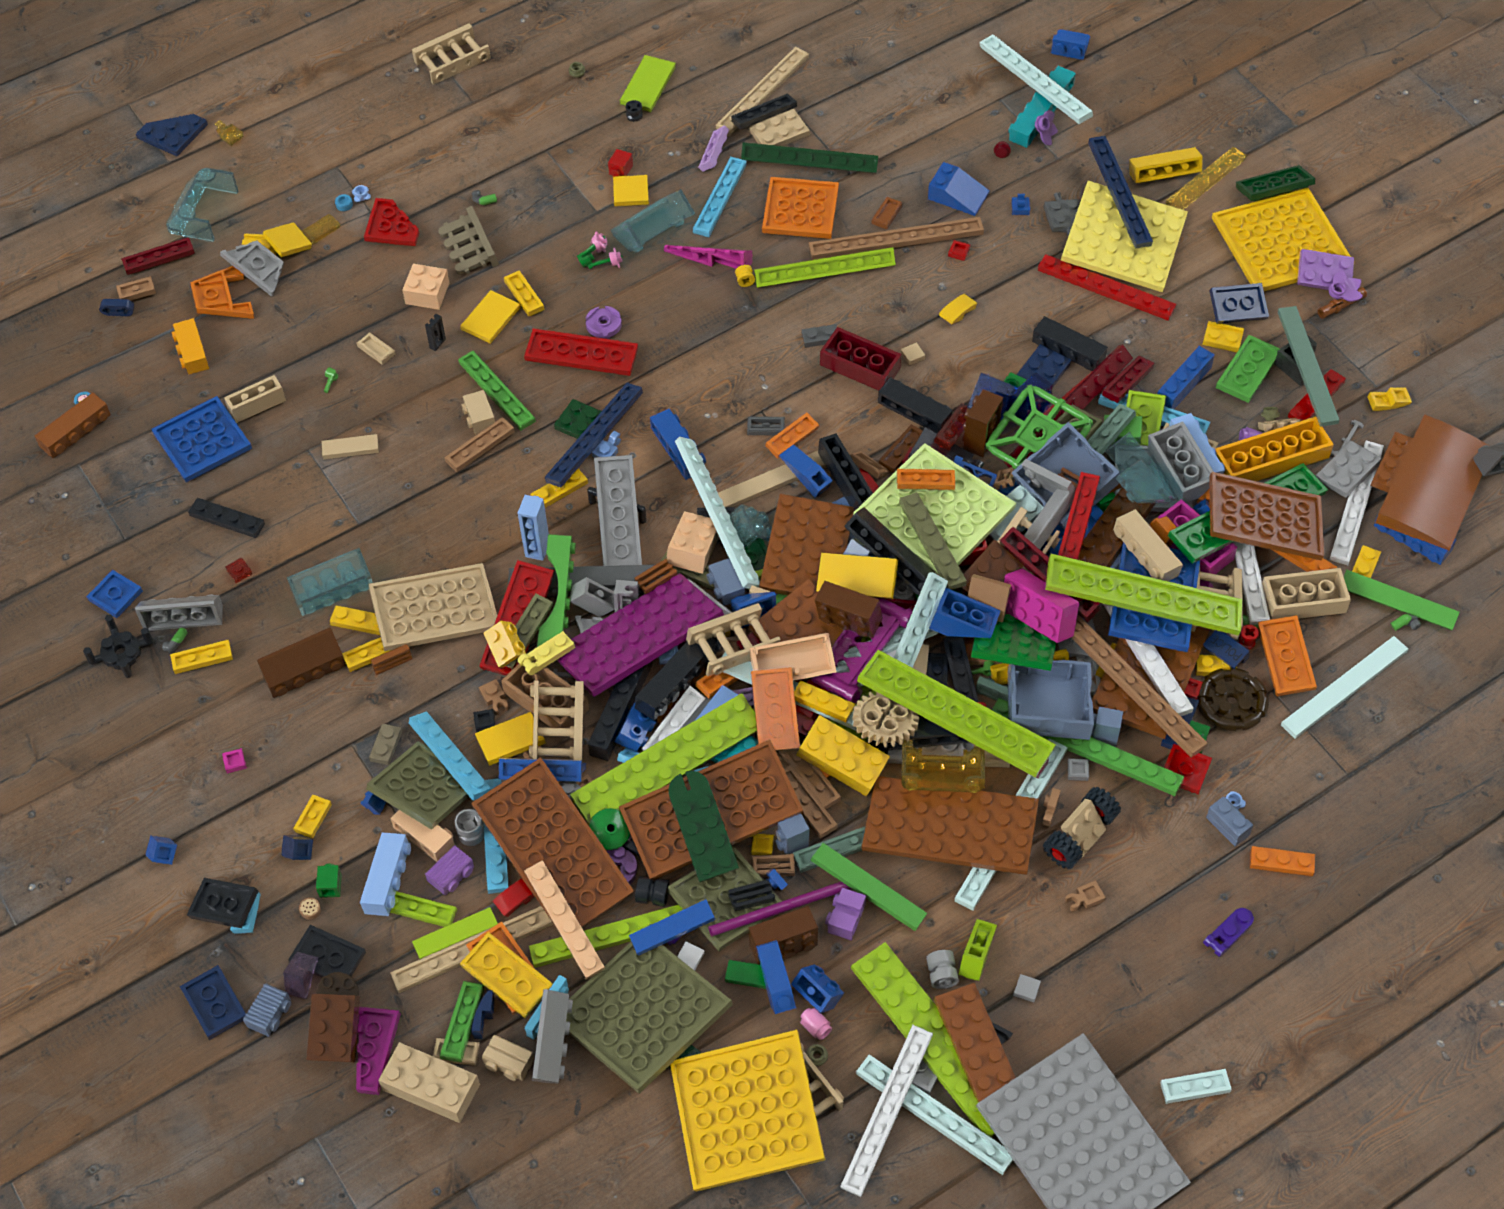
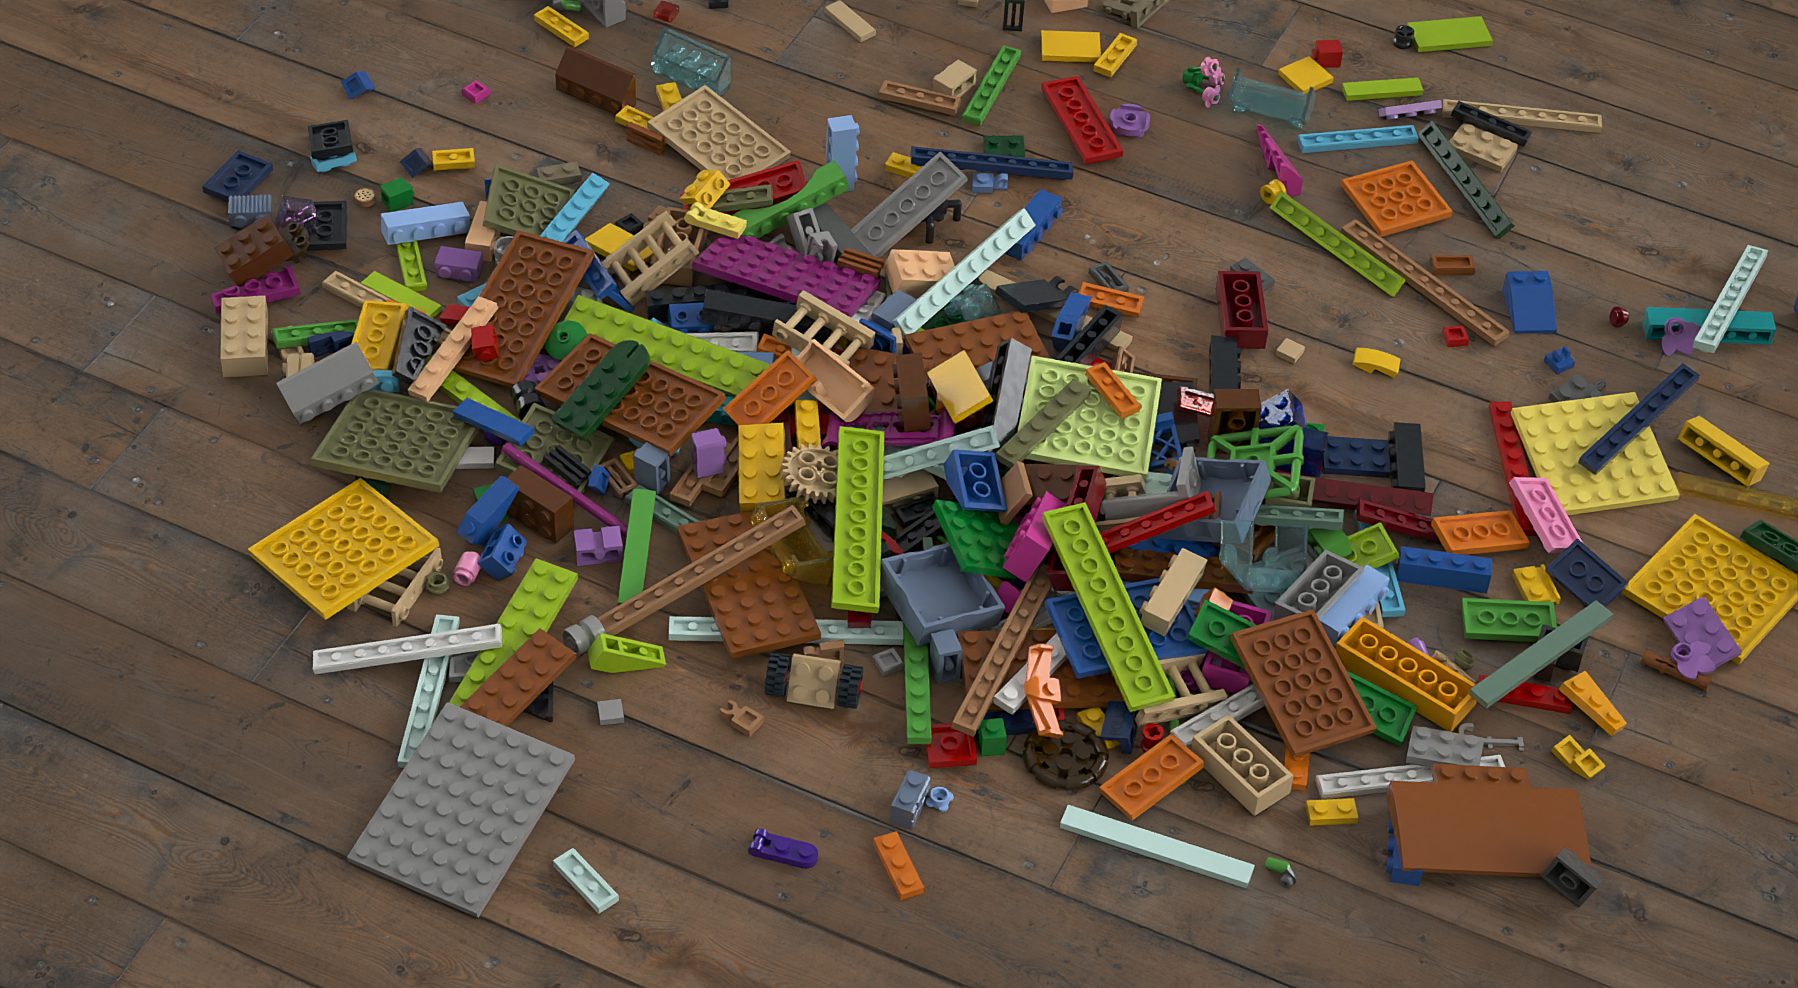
camera: 55 degrees right, 10 degrees down
(542, 949) = (415, 344): none -> black wing
(580, 891) = (484, 342): none -> red brick
(677, 153) = (1382, 89): none -> lime tile
(764, 479) = (1035, 294): none -> black tile
(809, 784) = (708, 452): none -> medium lavender brick
(934, 851) = (701, 571): none -> medium nougat plate
(1071, 653) = (1008, 595): none -> dark pink tile
(1164, 340) = (1480, 533): none -> orange plate
(1171, 293) = (1545, 513): none -> bright pink plate
(1186, 680) = (1042, 690): none -> orange plate
(1348, 363) = (1593, 702): none -> light orange wing
(1400, 600) = (1306, 855): bright green tile -> none

